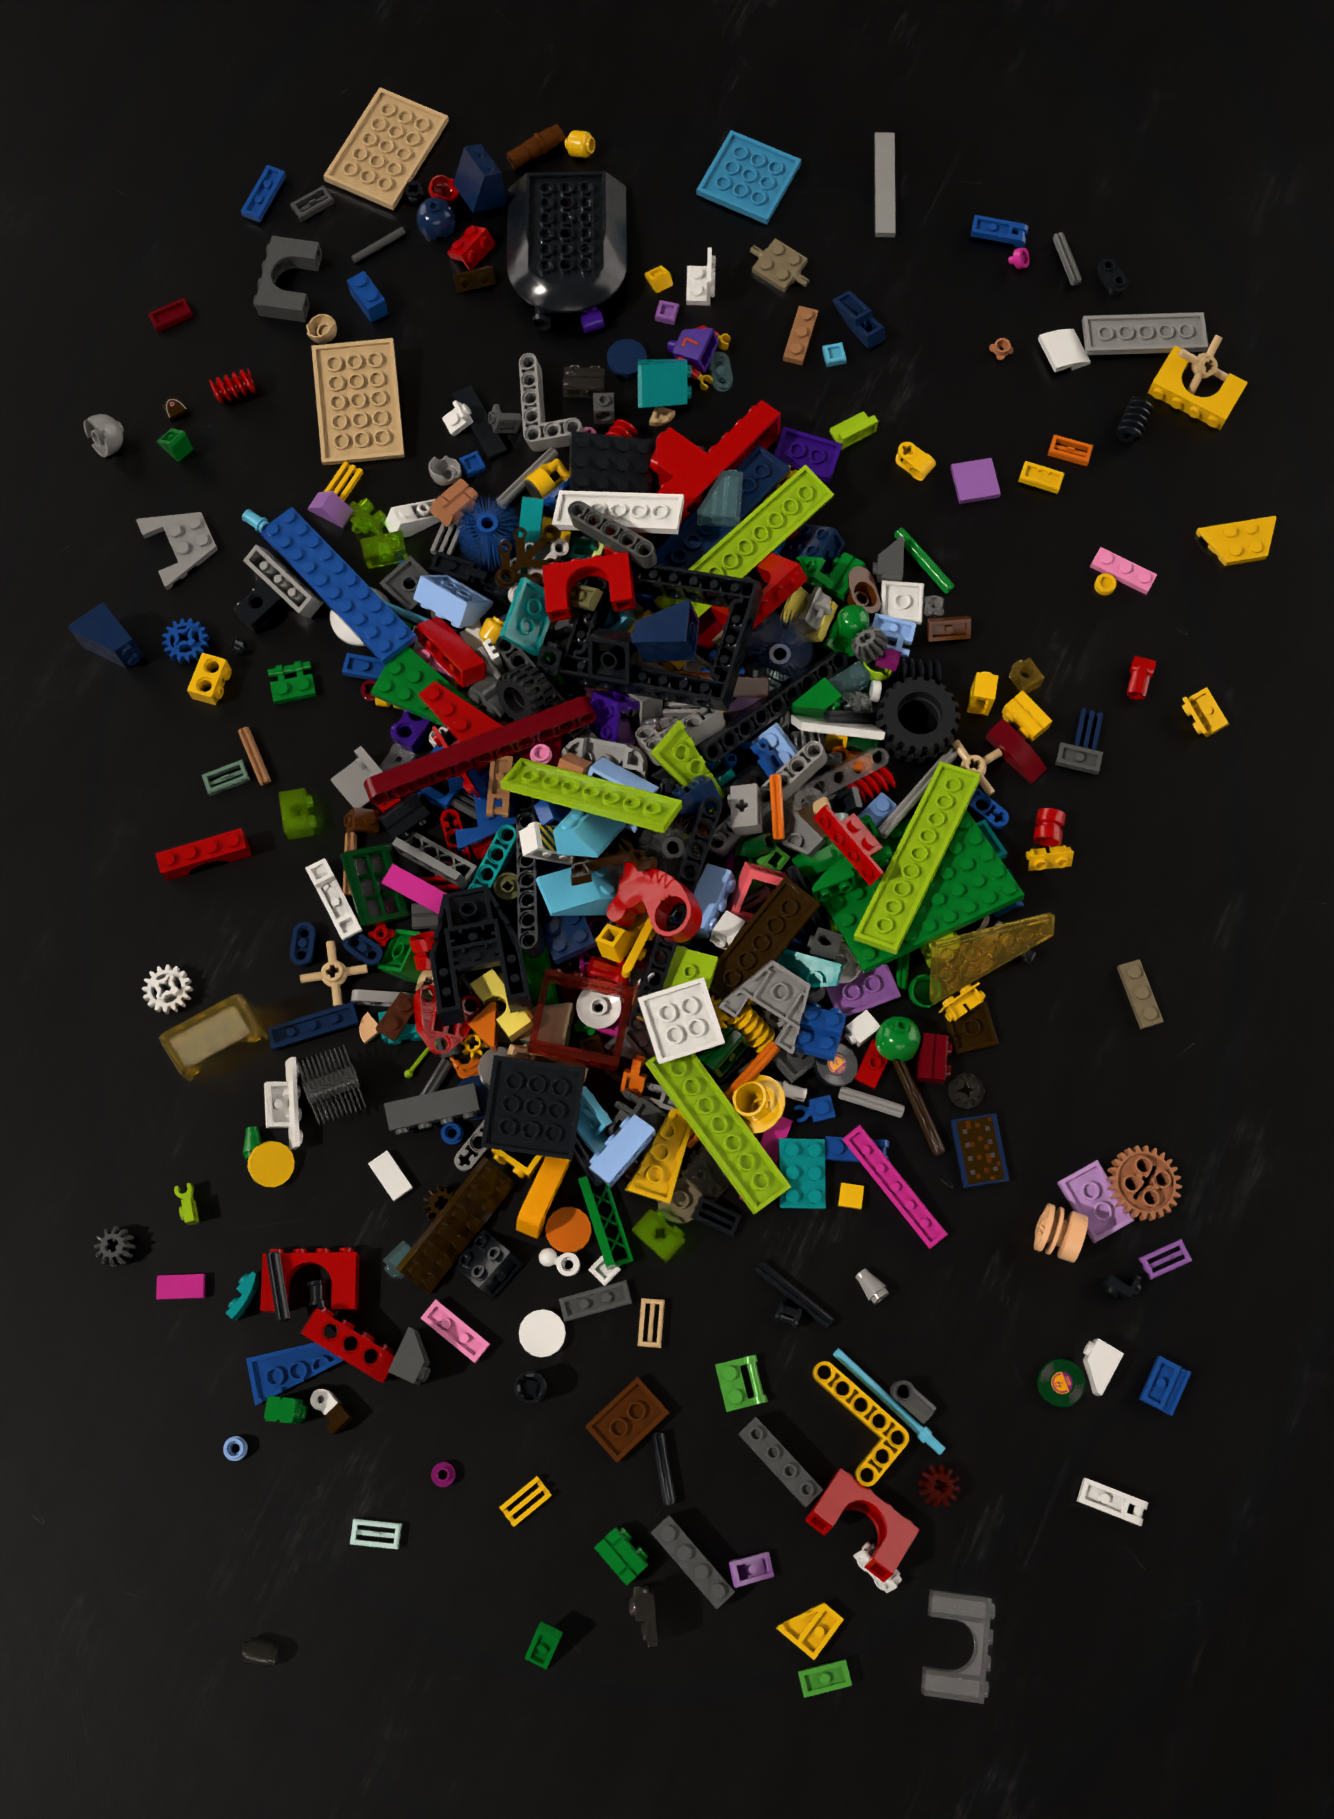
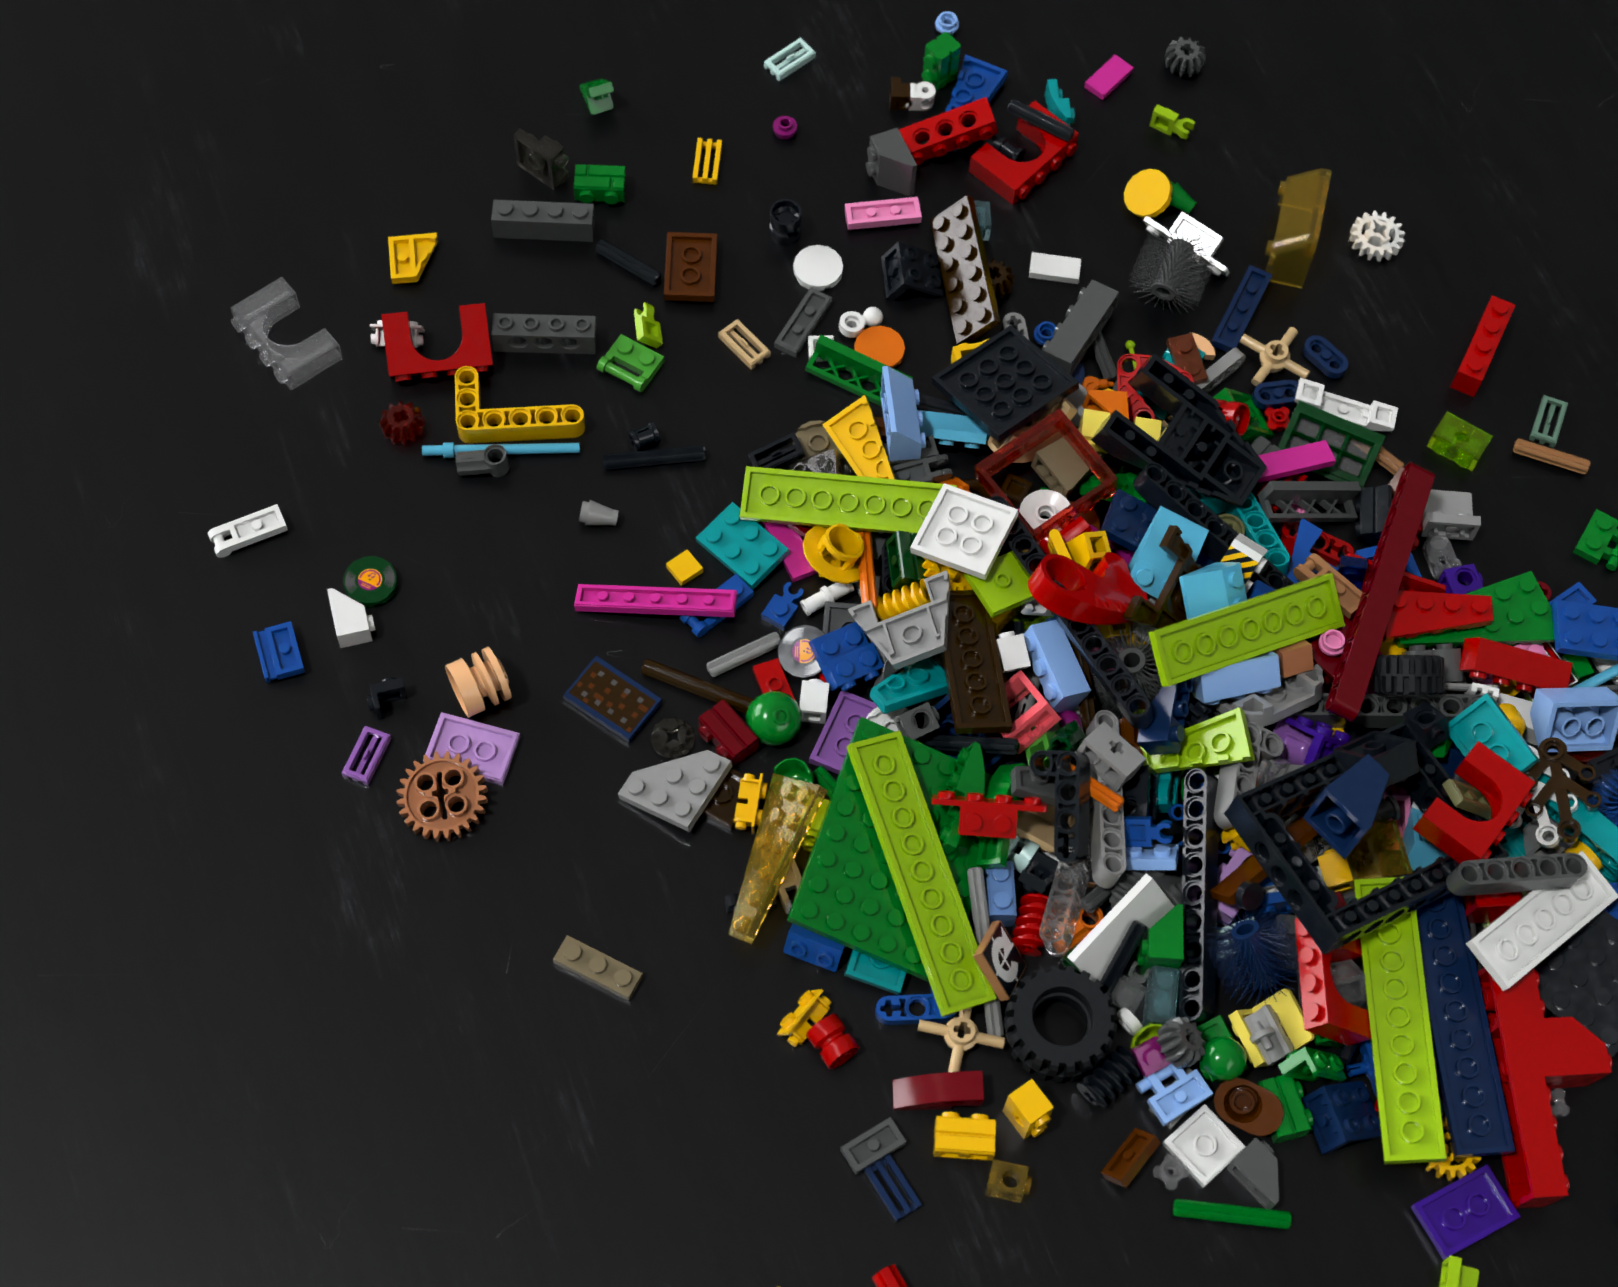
camera: 130 degrees right, 10 degrees down
(541, 1195) = (921, 329): light orange beam -> none
(646, 1229) = (805, 401): clear neon green brick -> none
(705, 1397) = (647, 329): none -> lime plate
(723, 501) = (1473, 1045): clear light blue slope -> none
(751, 1569) = (494, 248): medium lavender slope -> none
(785, 815) = (1064, 804): none -> black beam
(824, 1678) = (368, 235): bright green plate -> none
(917, 777) = (1000, 960): none -> tile
(997, 1053) = (677, 788): none -> light grey plate

